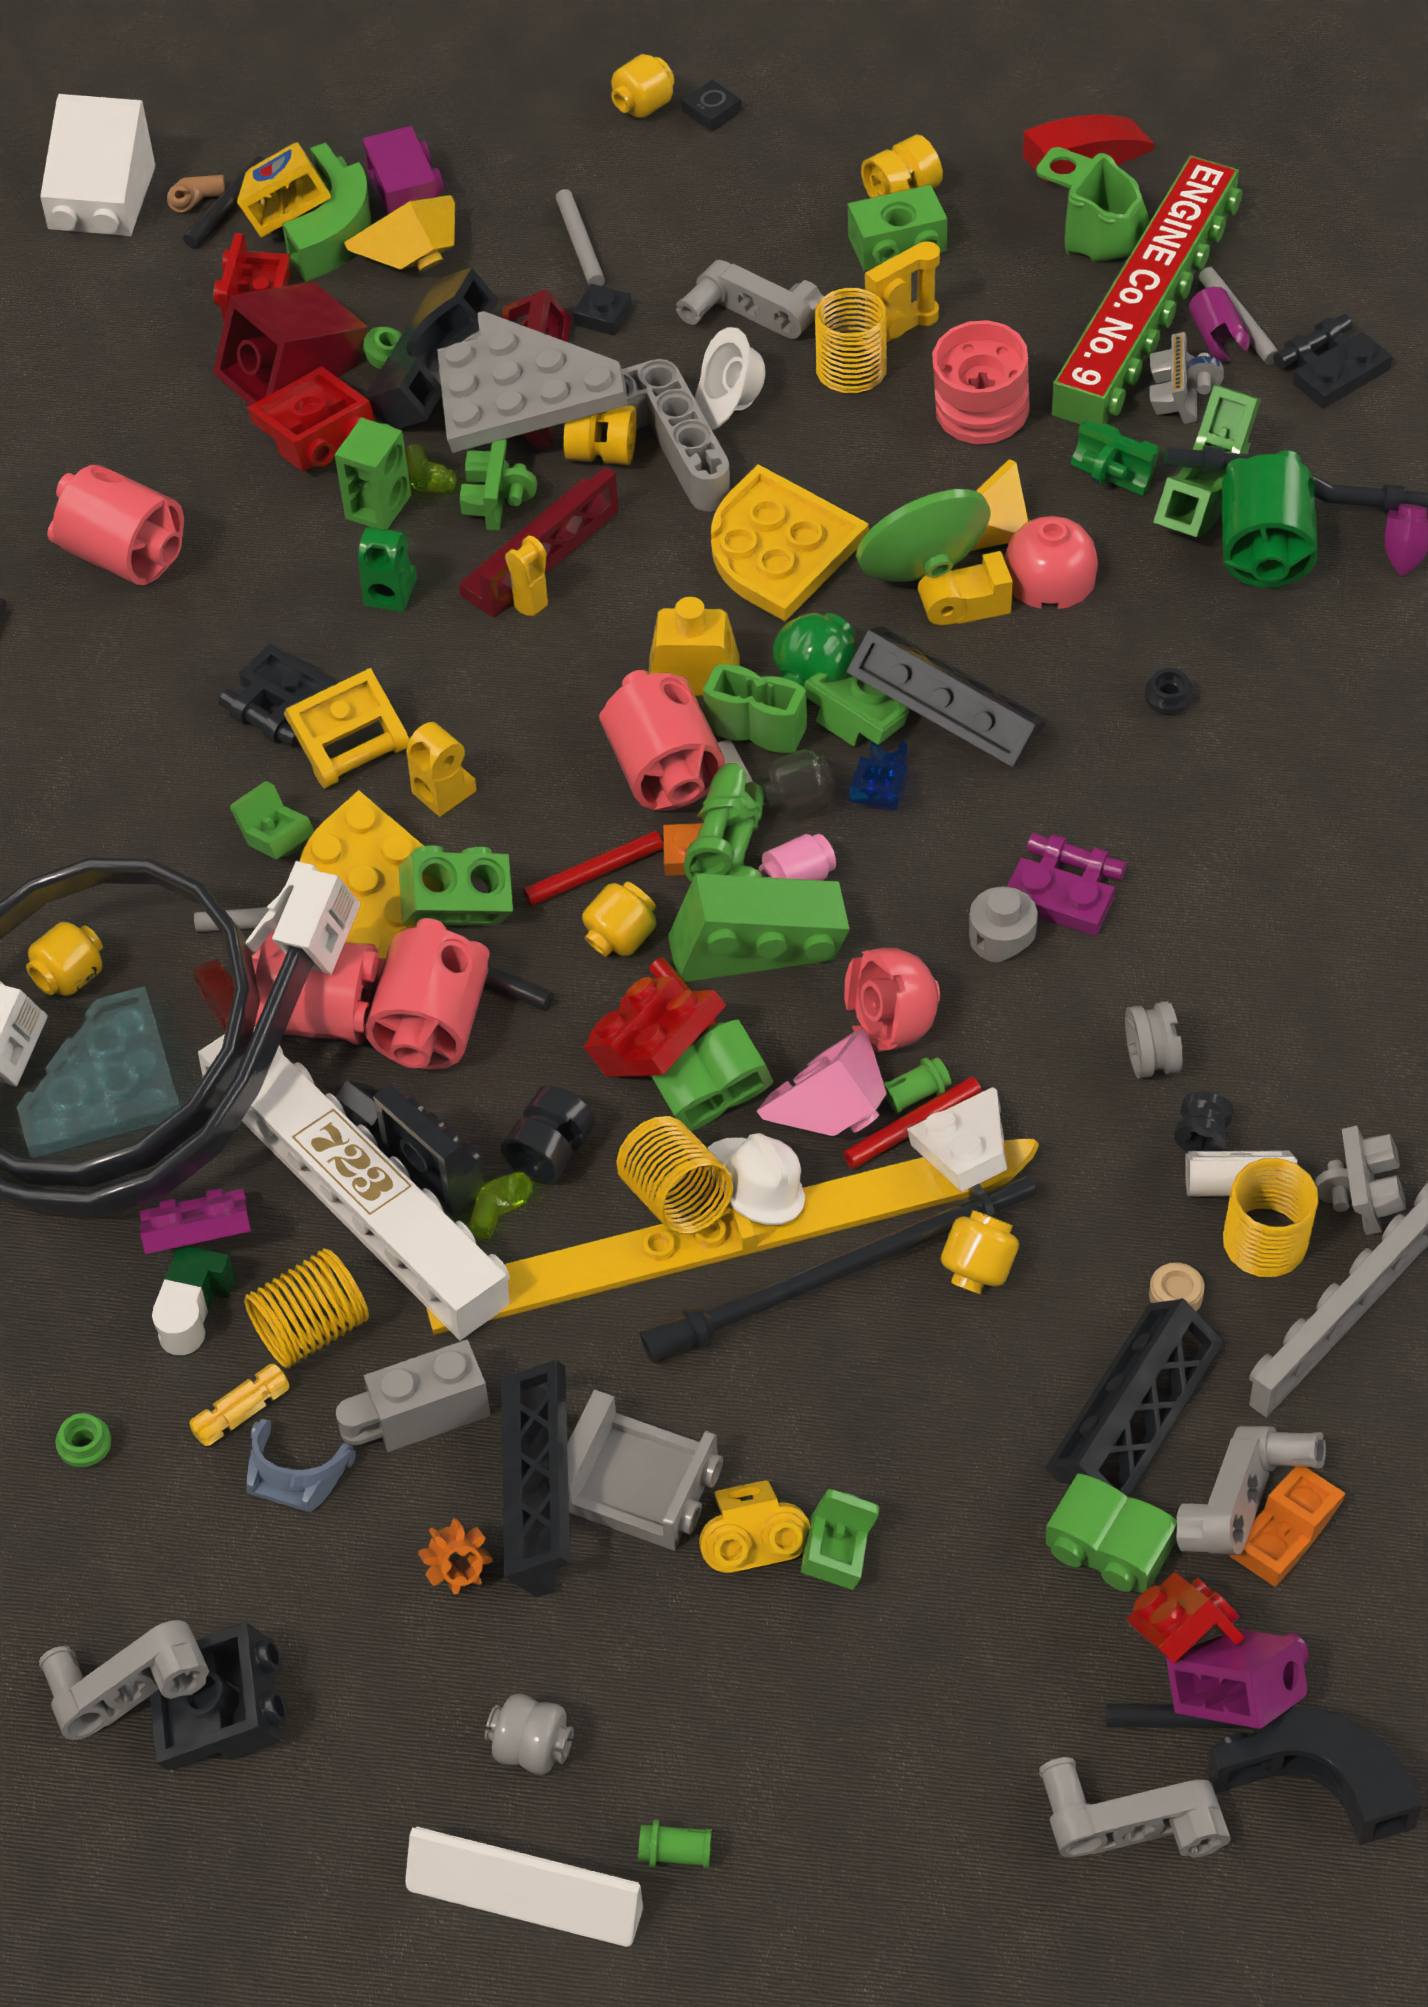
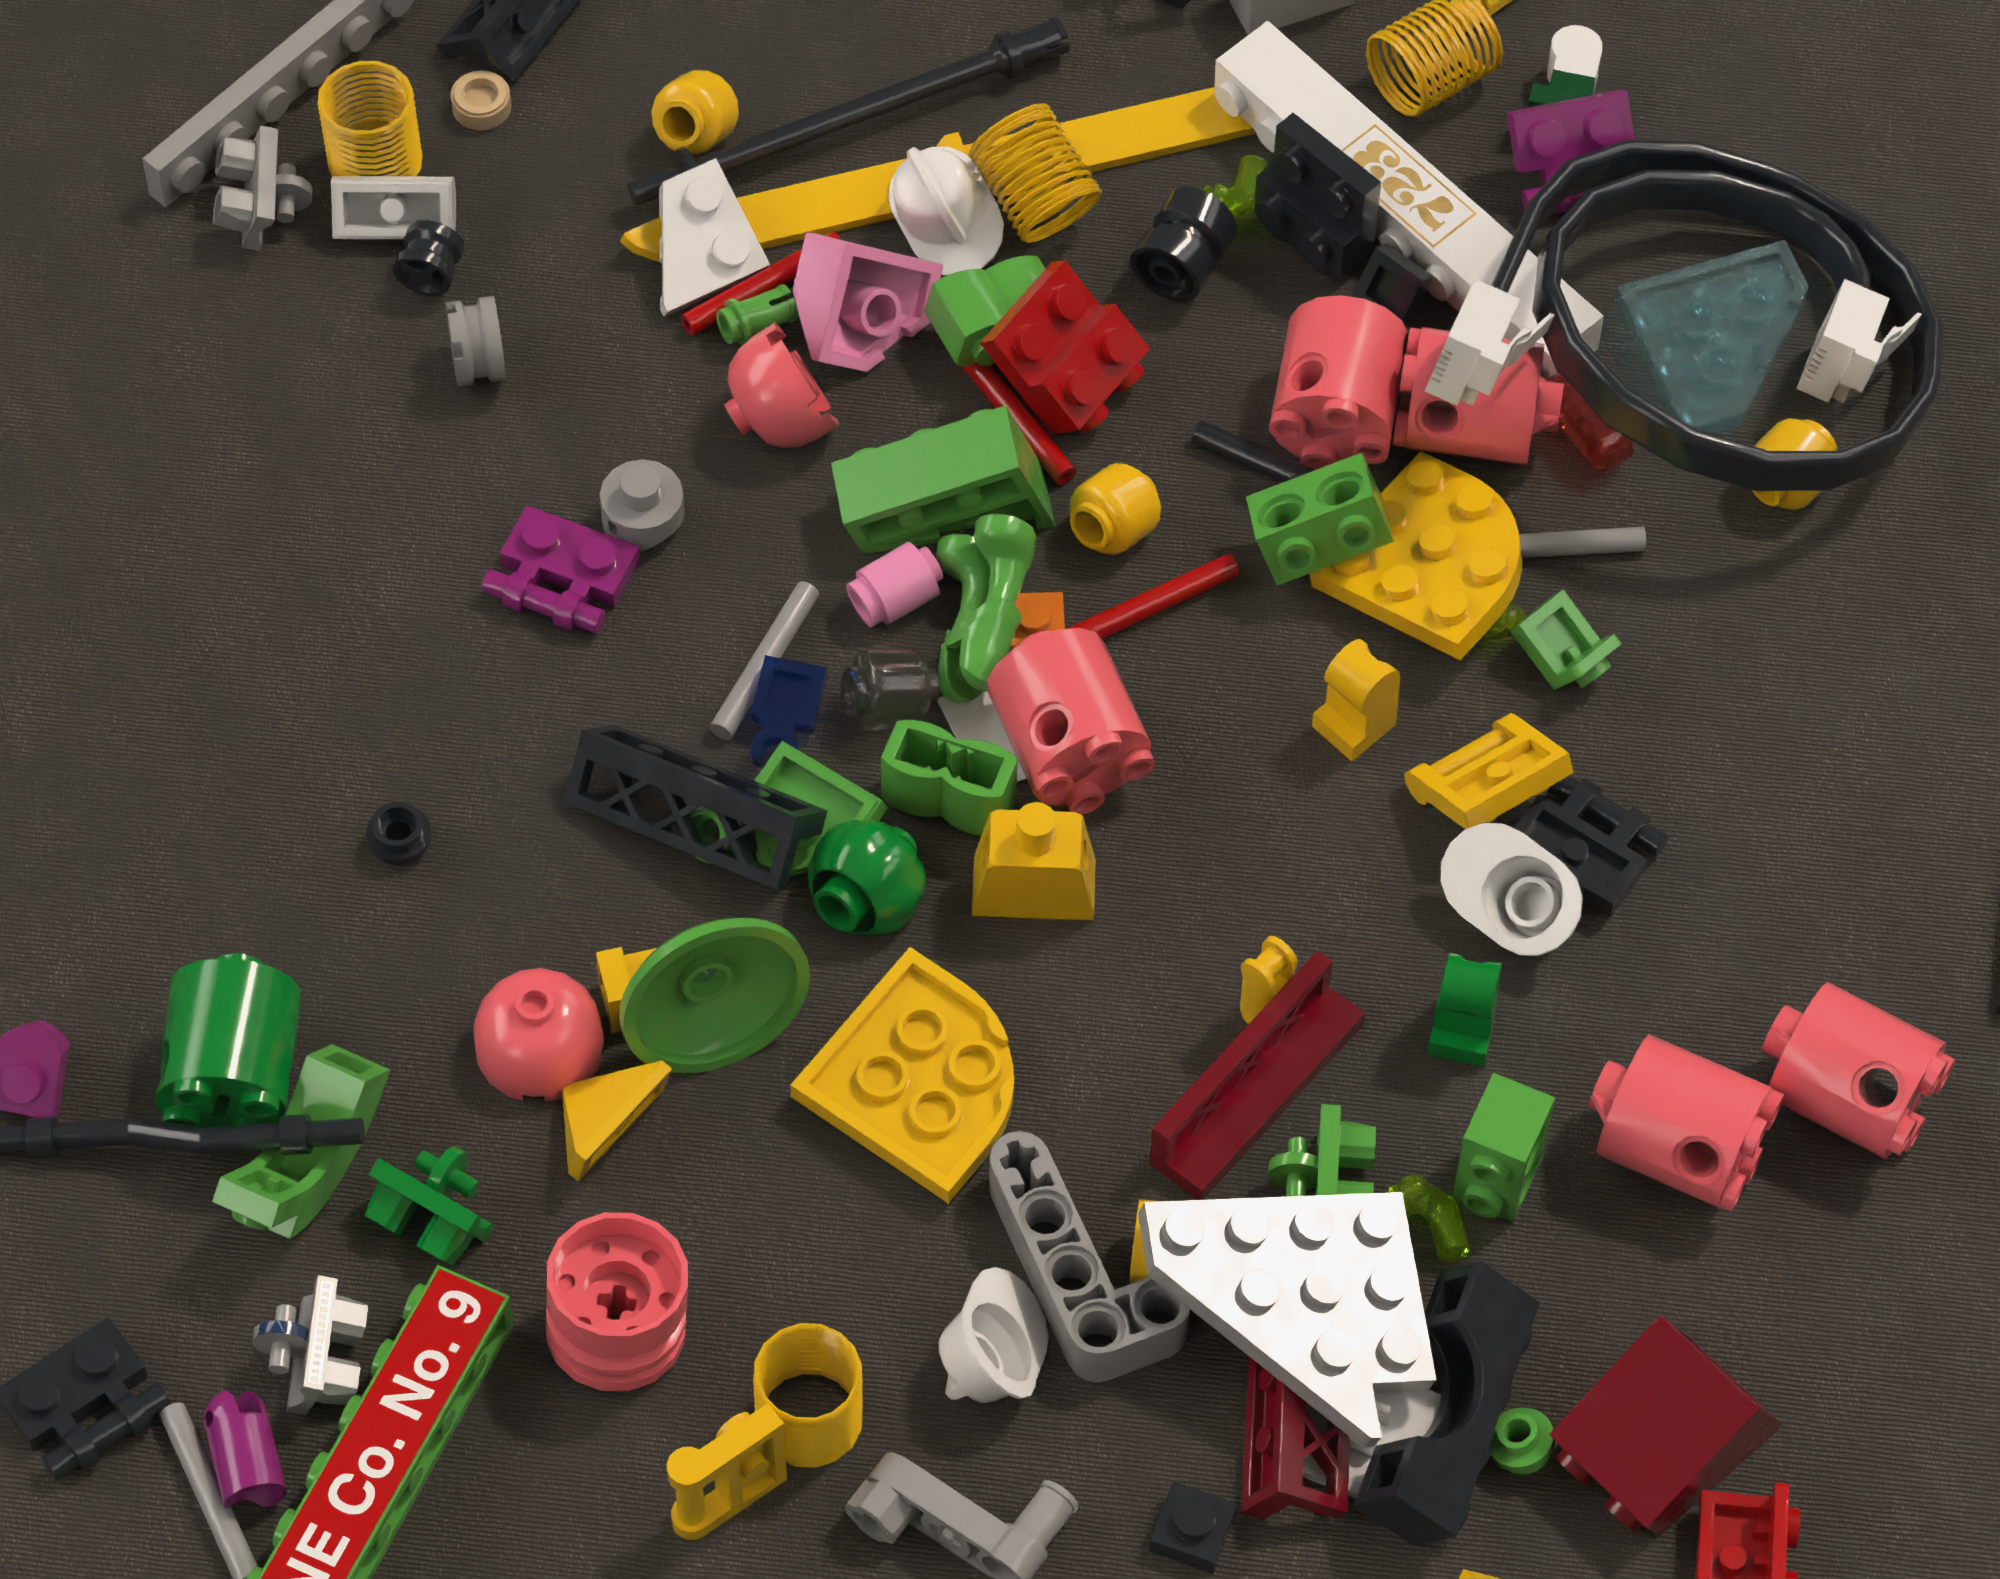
camera: 175 degrees right, 5 degrees up
(244, 492) = (1684, 1121): none -> coral cylinder
(311, 417) = (1609, 1283): red plate -> none
(335, 640) = (1511, 889): none -> white piece
(898, 822) = (774, 645): none -> light grey bar

